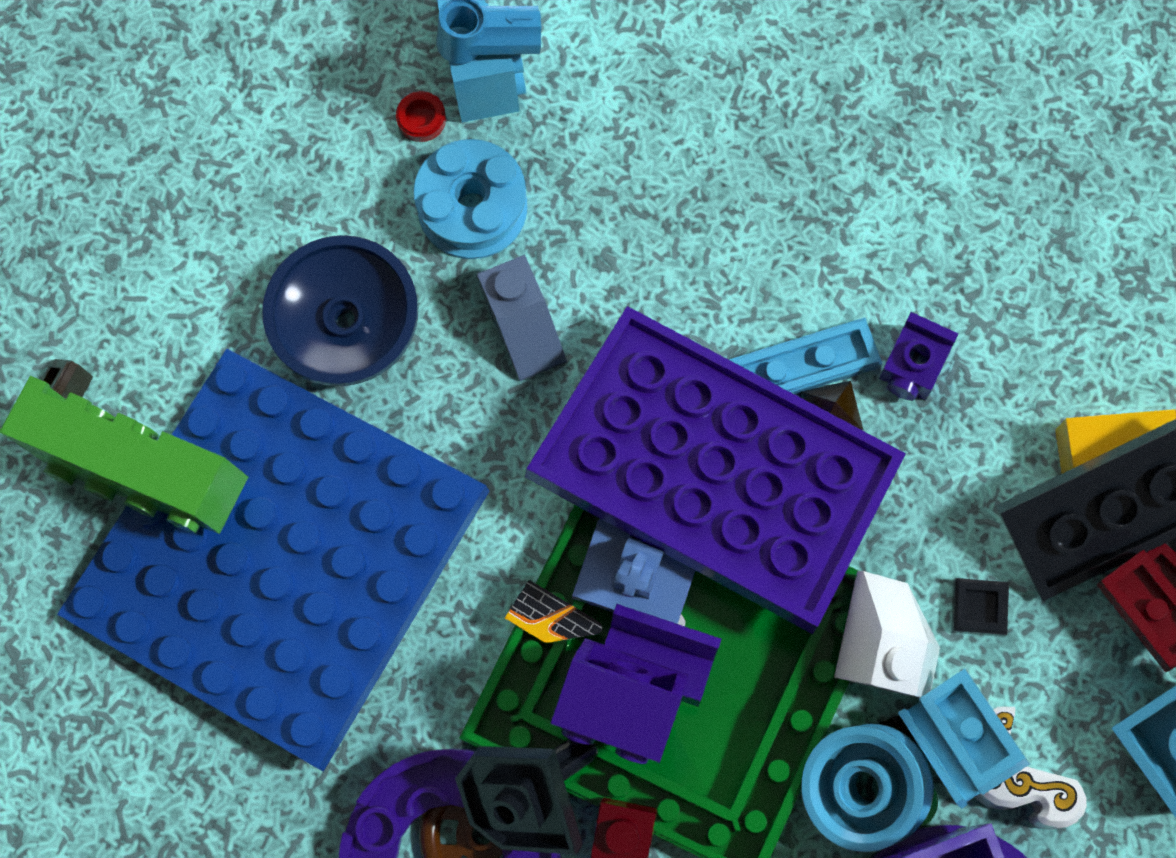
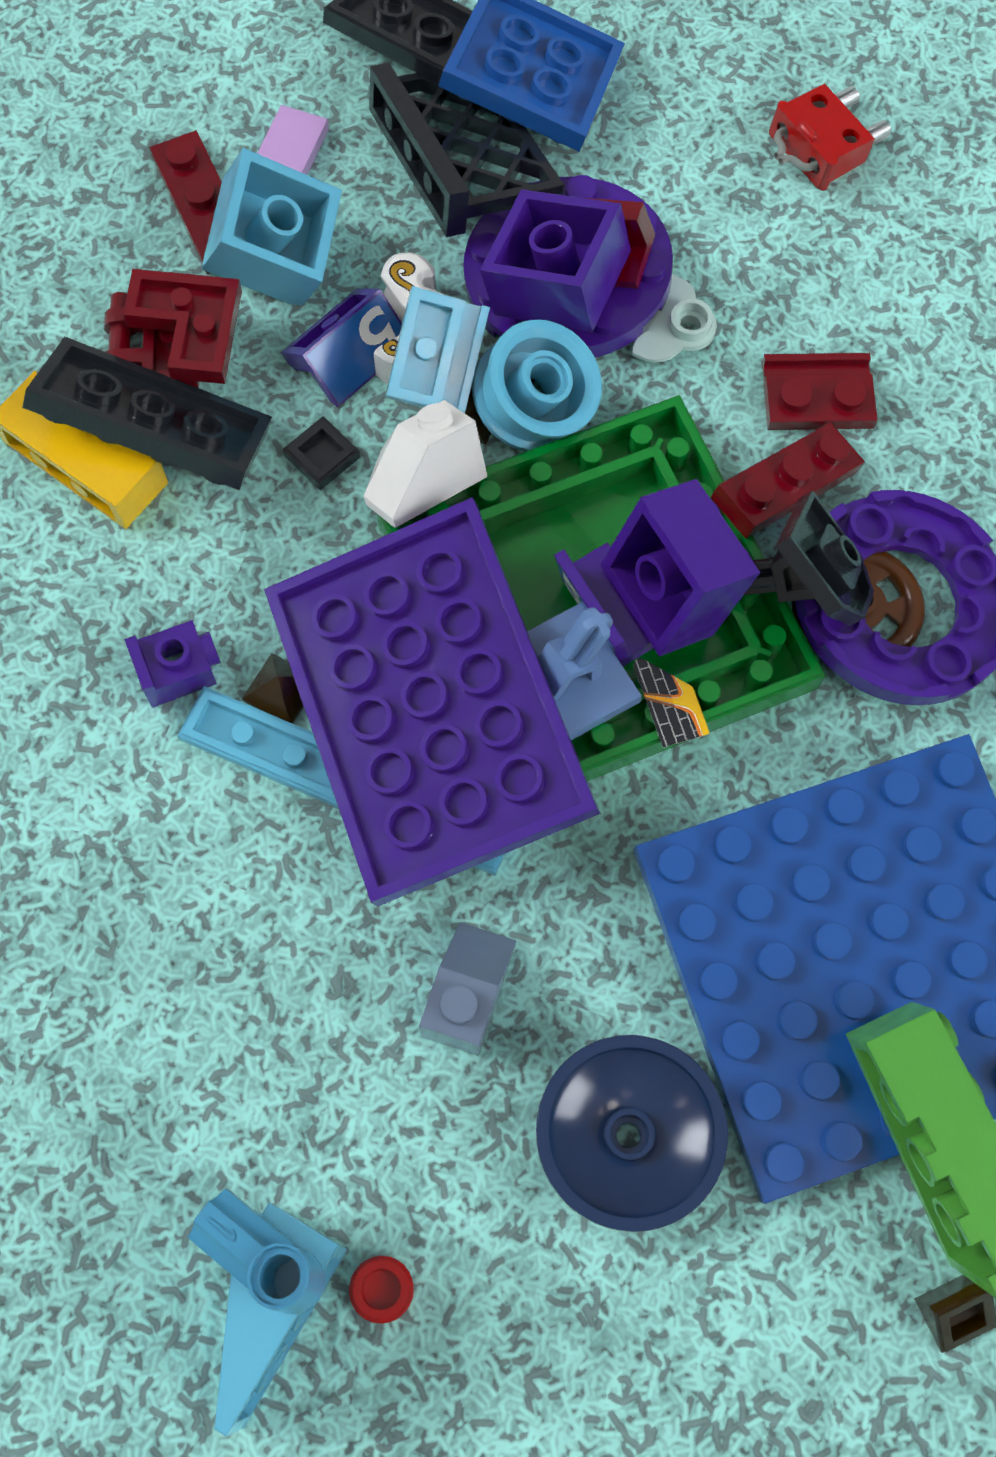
camera: 145 degrees left, 5 degrees down
(466, 169) = (371, 1137): medium azure wheel -> none
(1052, 710) = (343, 343): none -> panel

